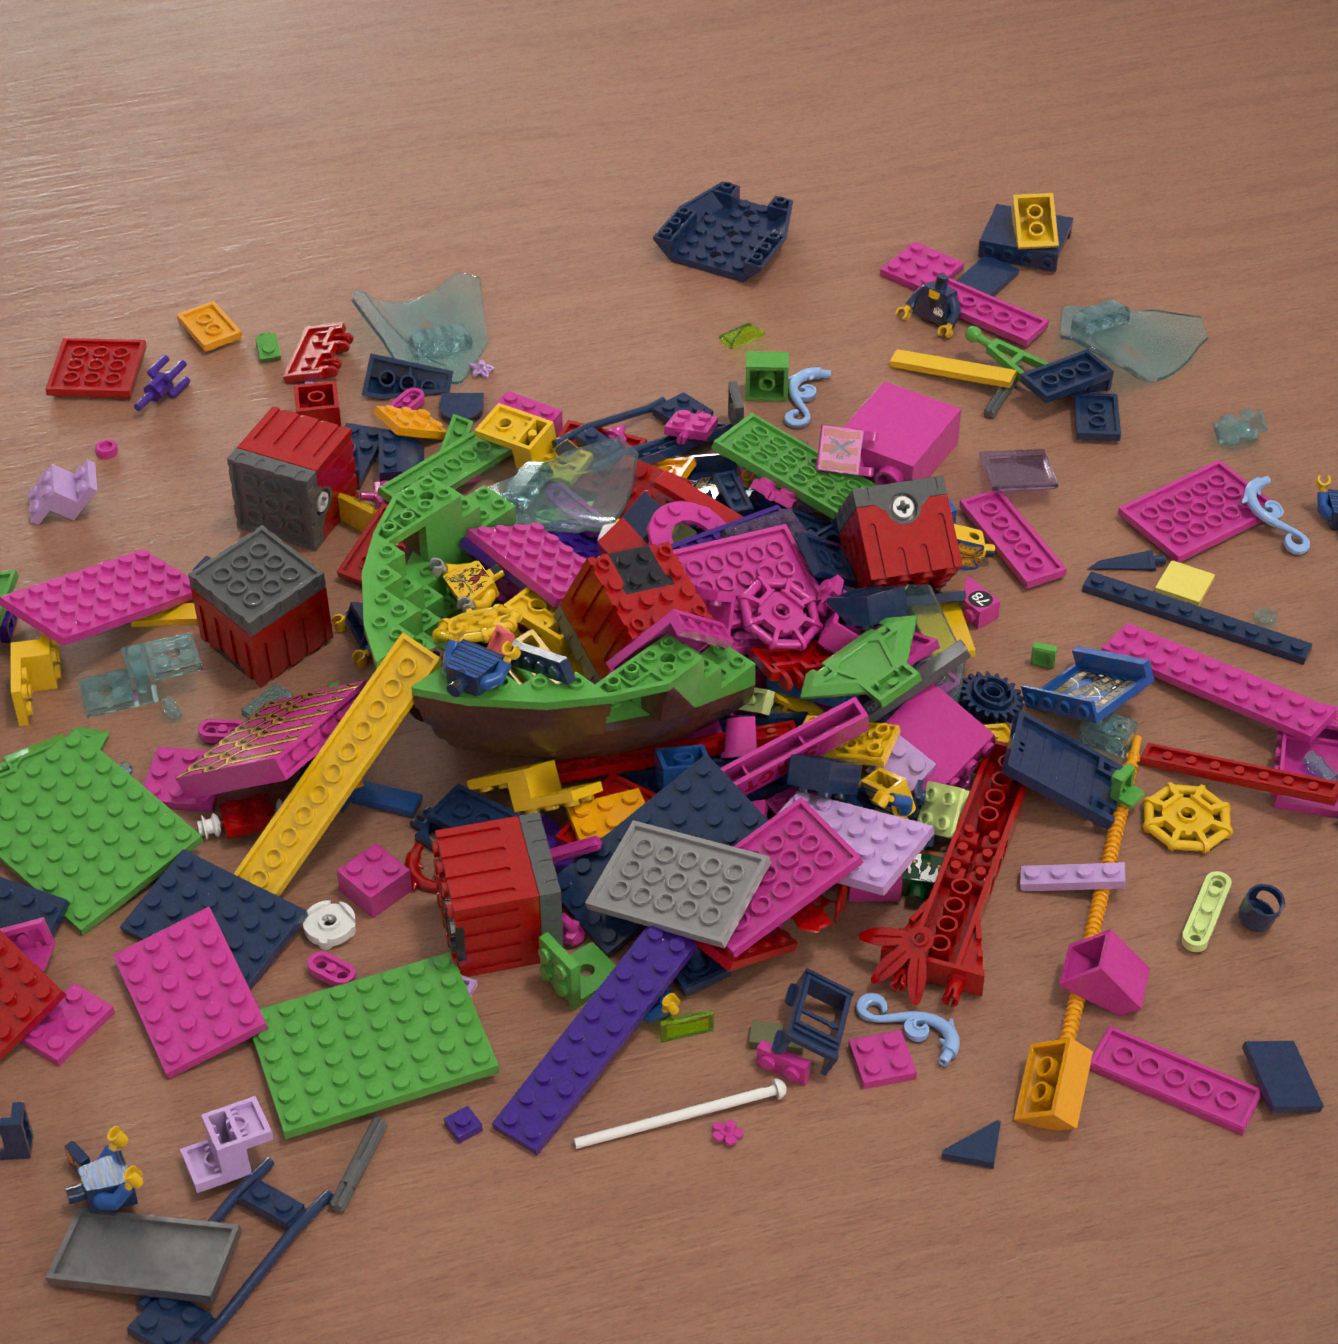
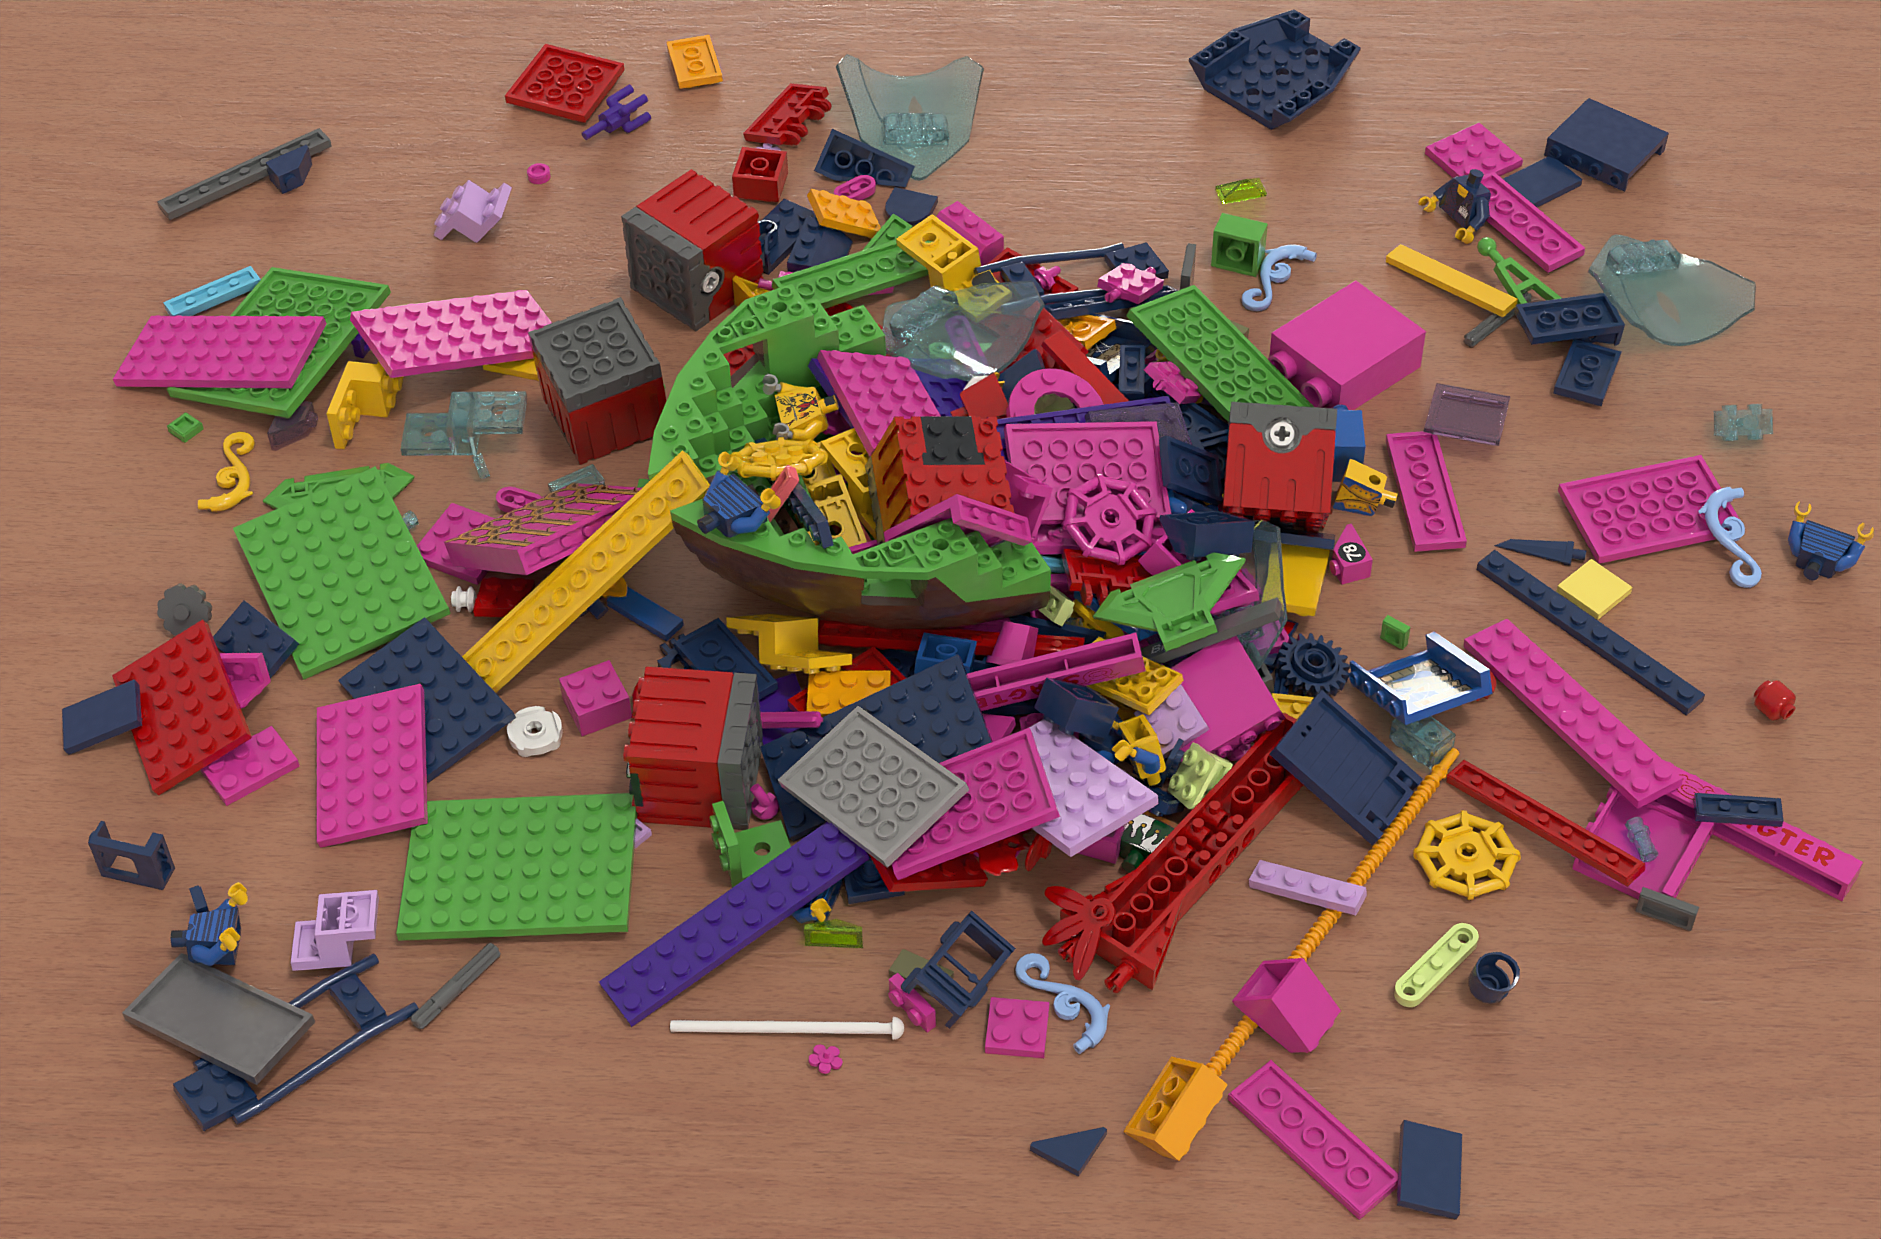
camera: 20 degrees right, 5 degrees up
(267, 347) = (742, 97): bright green bracket -> none
(334, 970) = (518, 781): dark pink plate -> none
(463, 1124) = (572, 974): dark purple plate -> none
(482, 369) = (949, 169): lavender plant -> none
(828, 589) = (1173, 505): dark pink plate -> none
(841, 450) = (1270, 349): flag -> none
(1034, 221) = (1616, 128): yellow slope -> none
(1123, 788) = (1404, 804): bright green bracket -> none
(1265, 617) = (1668, 650): clear light blue tile -> none

